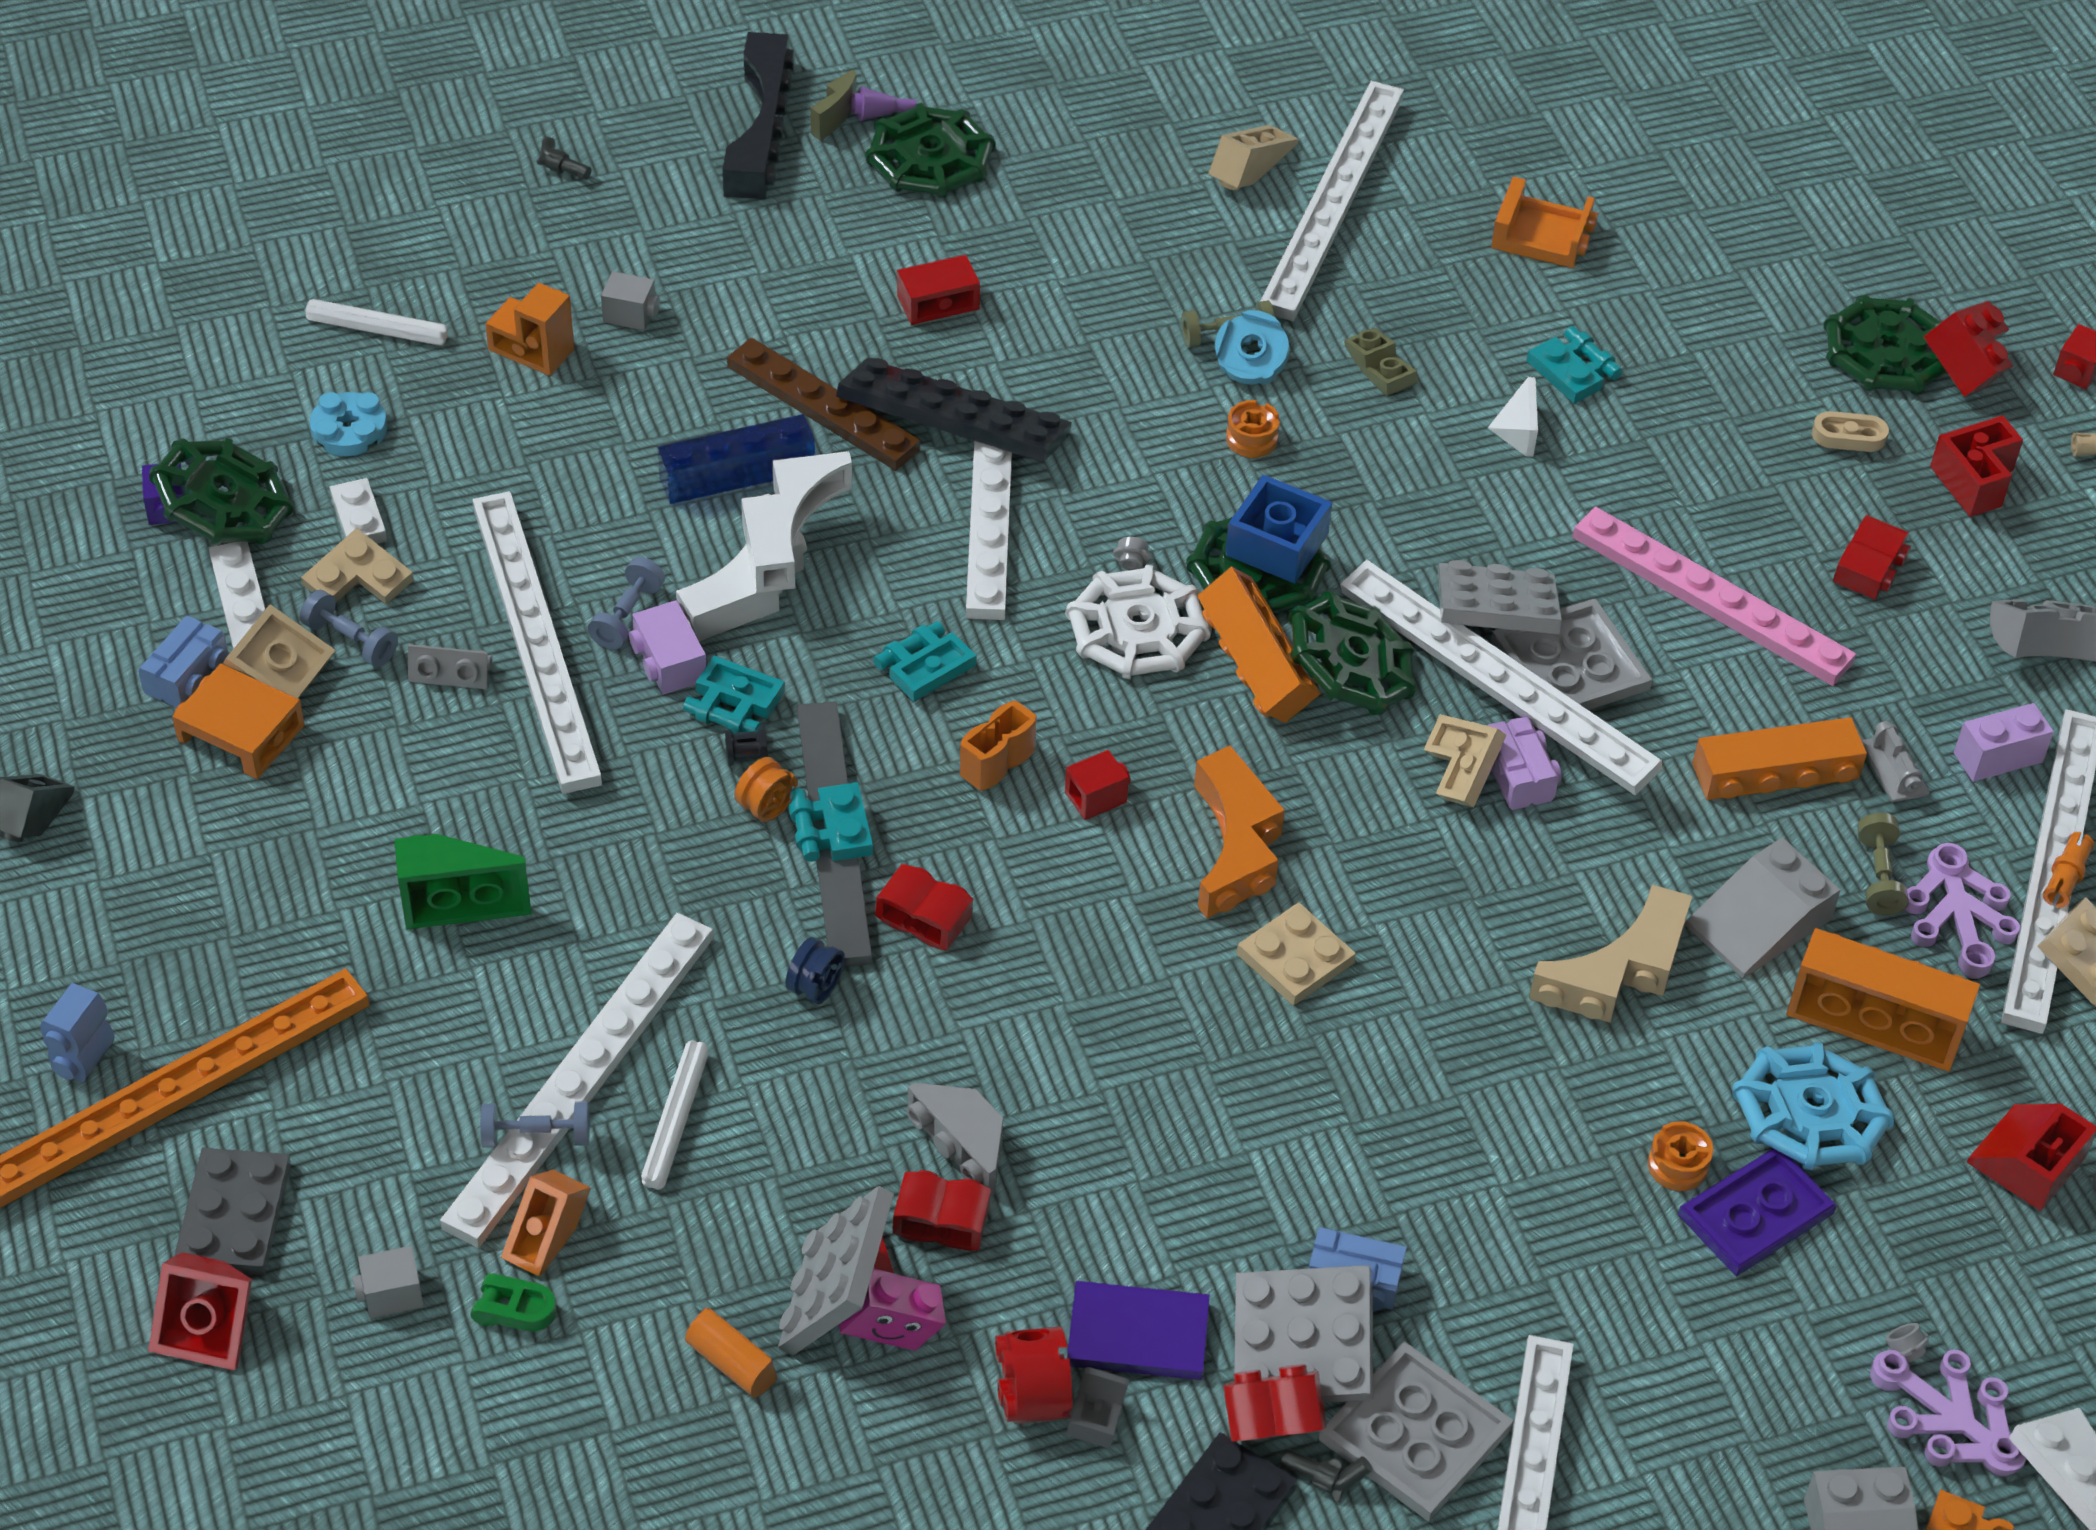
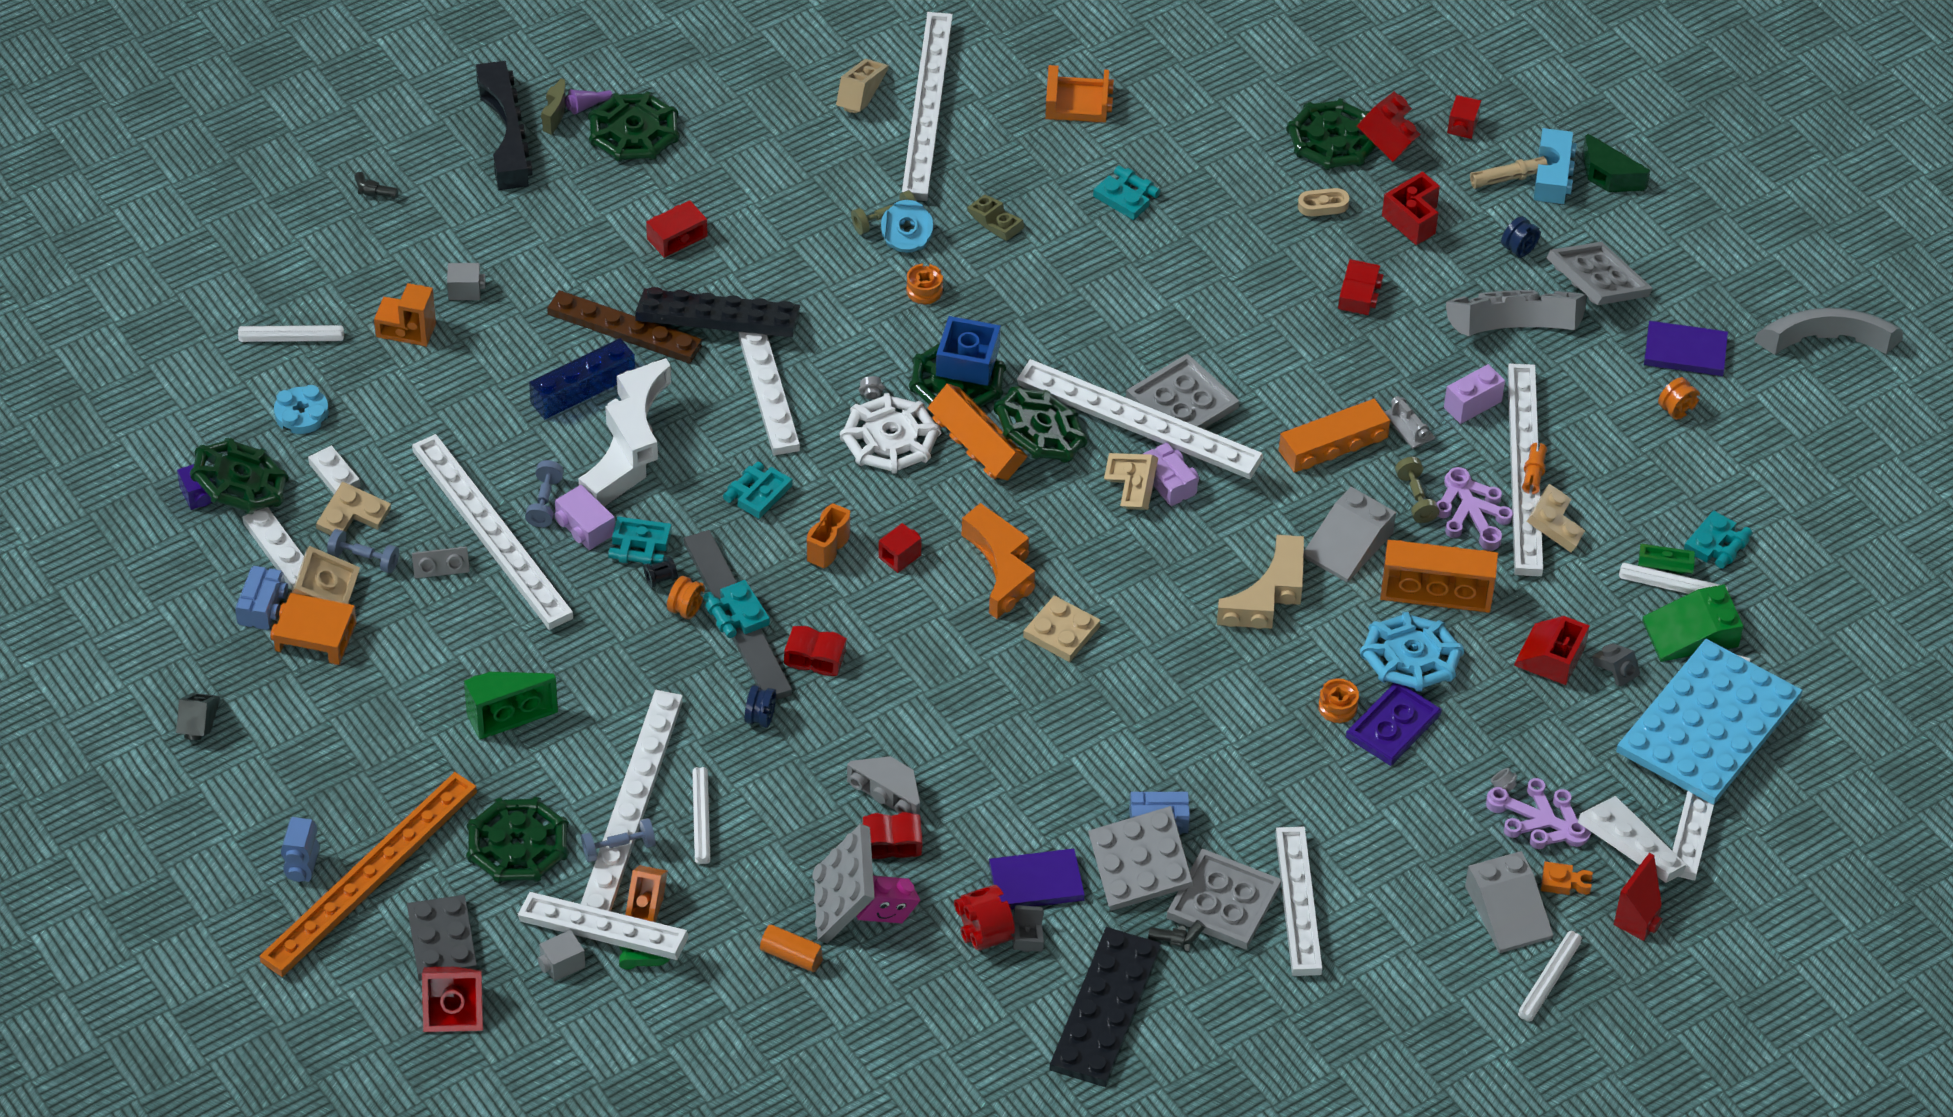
camera: 15 degrees left, 0 degrees up
(392, 1069) = (517, 826): none -> dark green plate
(465, 1251) = (603, 925): none -> white plate
(1274, 1404) = (1136, 901): red brick -> none
(1498, 597) = (1124, 366): light grey plate -> none
(1518, 419) = (1101, 239): white slope -> none
(1714, 596) = (1262, 334): bright pink plate -> none

